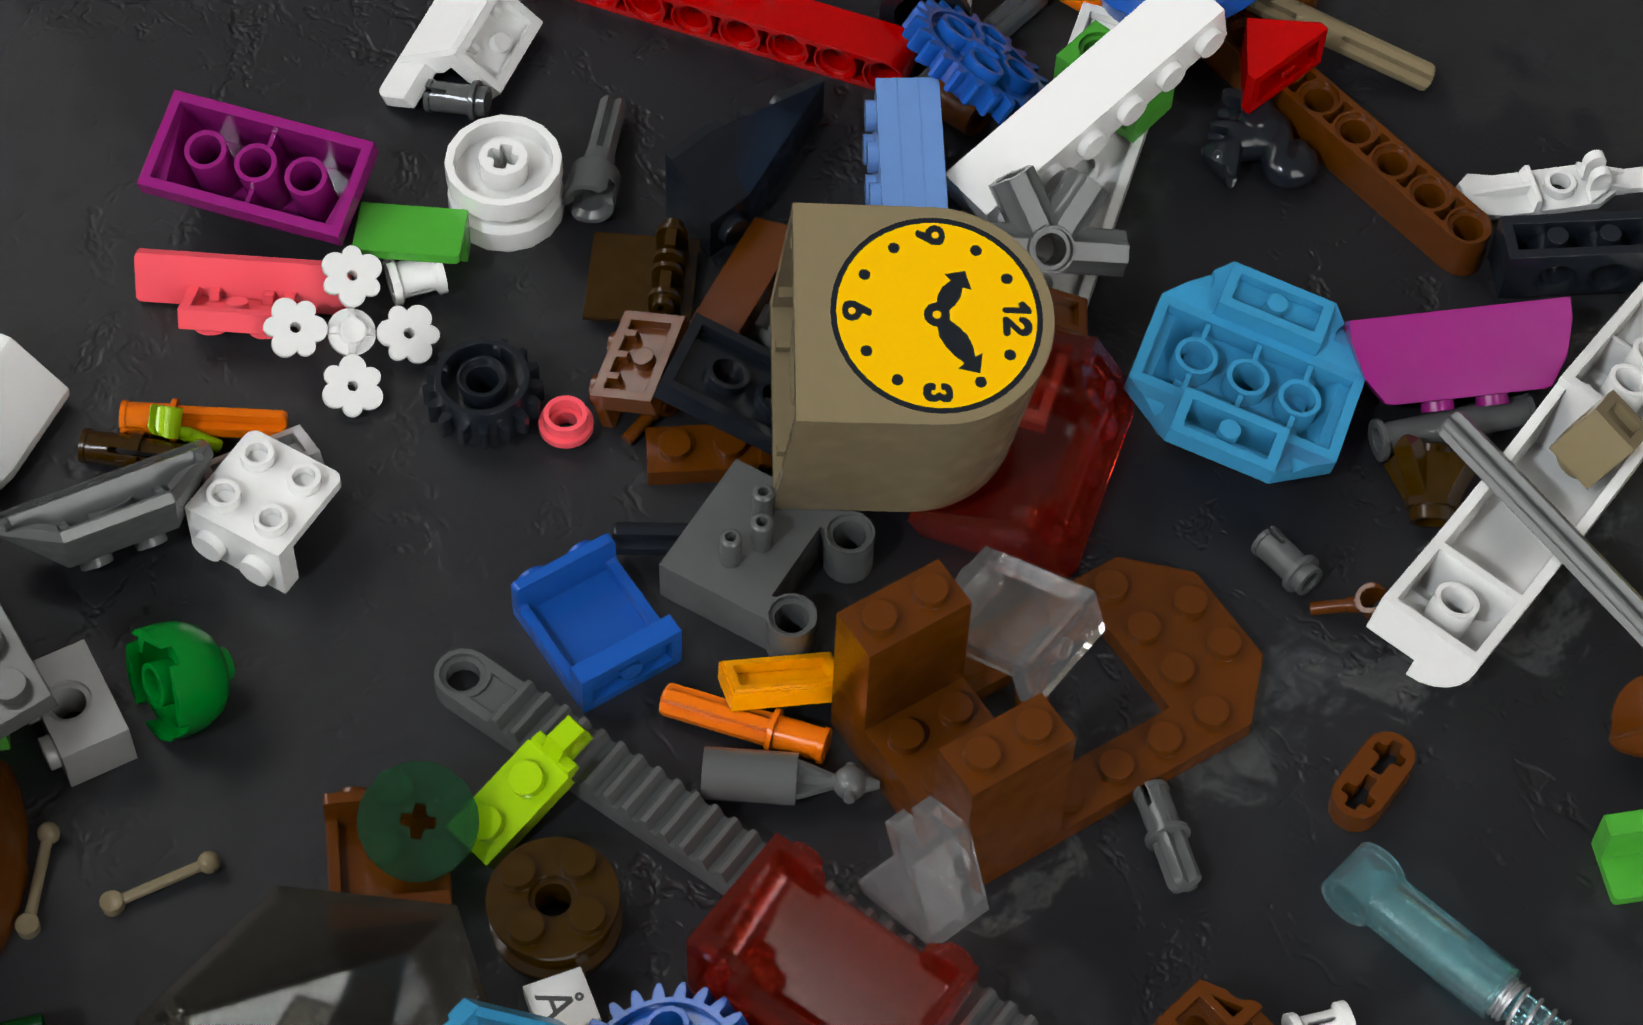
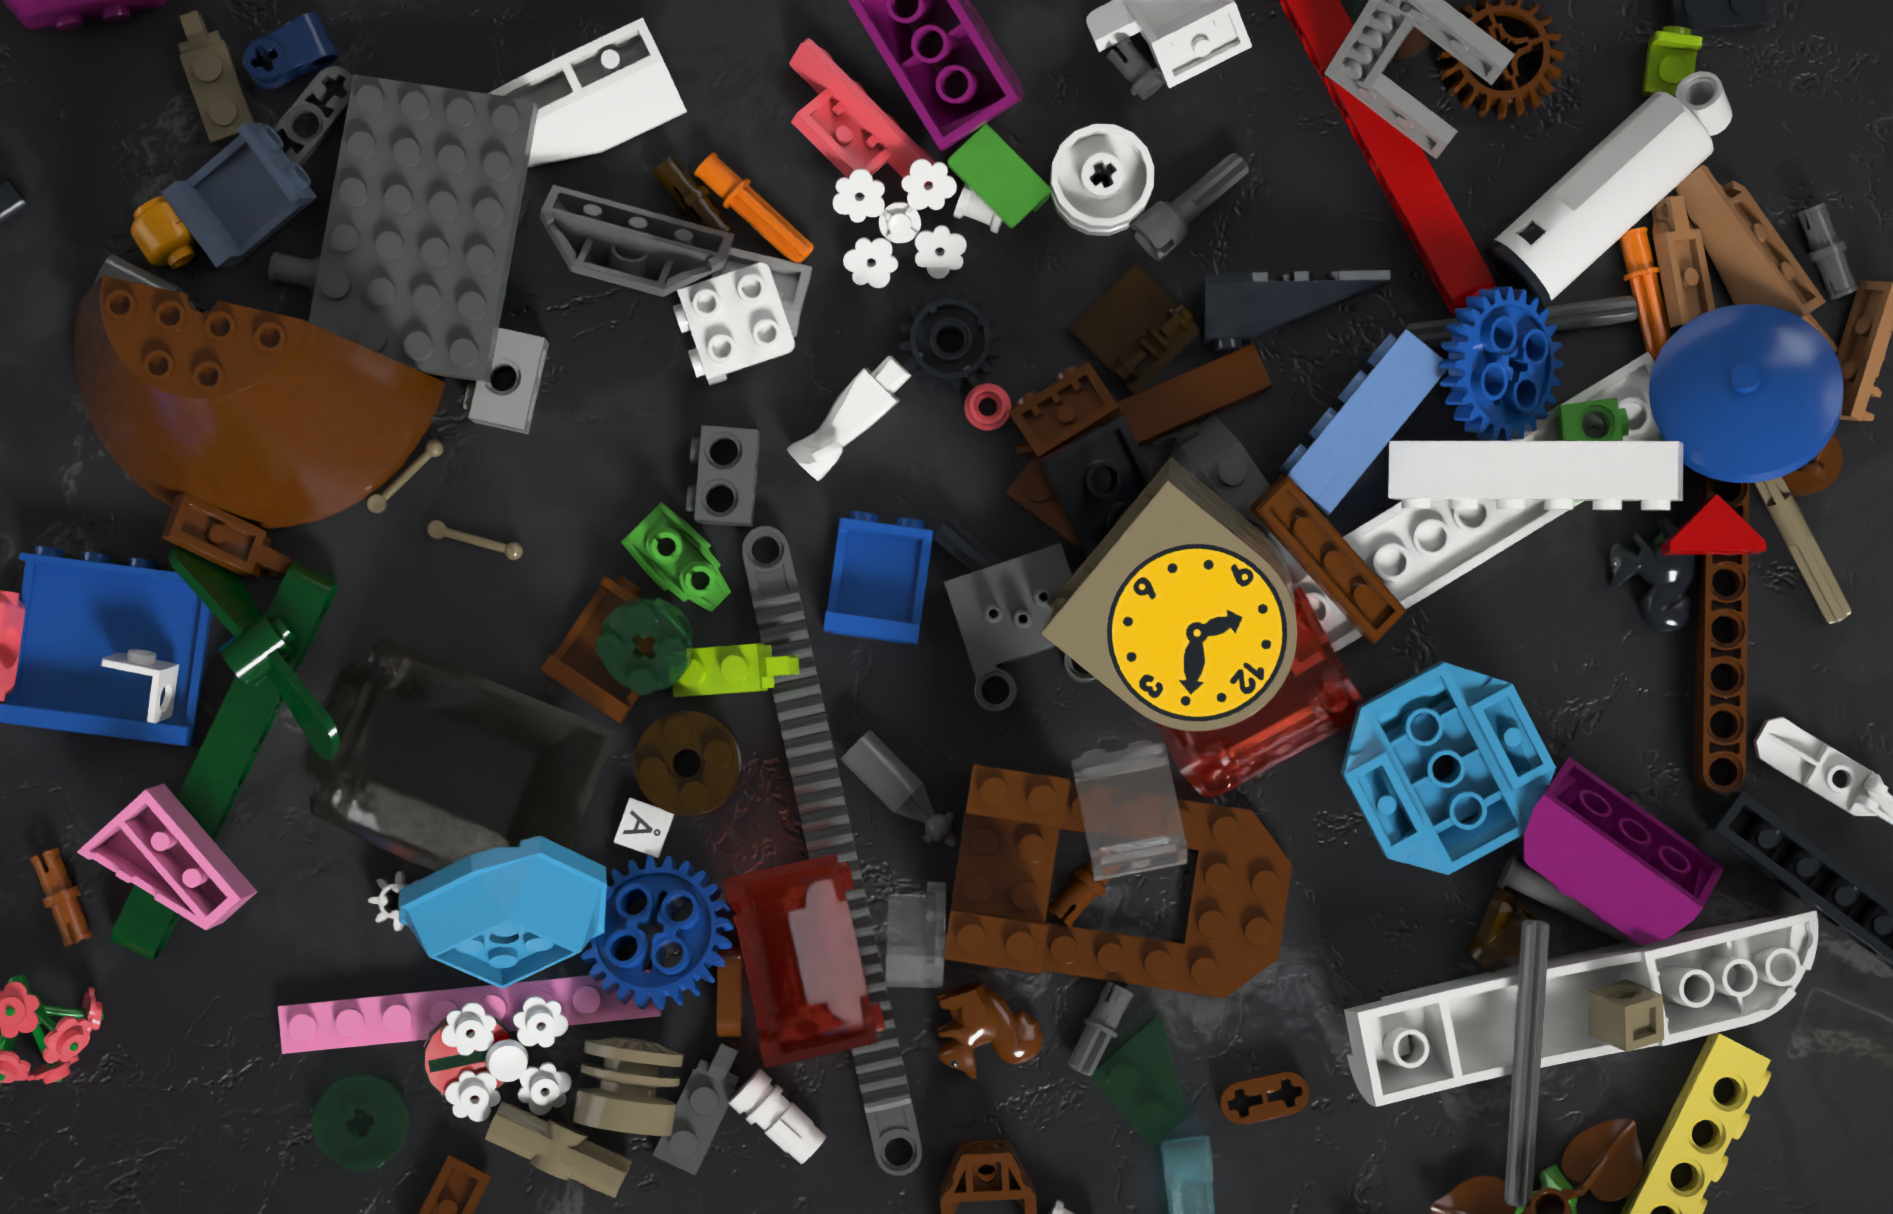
camera: 40 degrees right, 30 degrees up
(166, 422) = (722, 203): lime hand -> none
(180, 677) = (587, 411): green cylinder -> none
(366, 739) = (677, 558): none -> bright green connector
(378, 636) = (737, 476): none -> dark grey brick
(445, 499) = (853, 412): none -> white hips
(754, 726) = (913, 729): orange axle -> none
(777, 681) = (957, 722): light orange tile -> none
(1053, 911) = (984, 1018): none -> reddish brown animal
(1064, 218) = (1411, 530): dark grey piece -> none
(1255, 857) = (1144, 1083): none -> clear green wing
(1296, 569) = (1359, 906): dark grey pin -> none
(1360, 603) = (1375, 974): reddish brown hand -> none

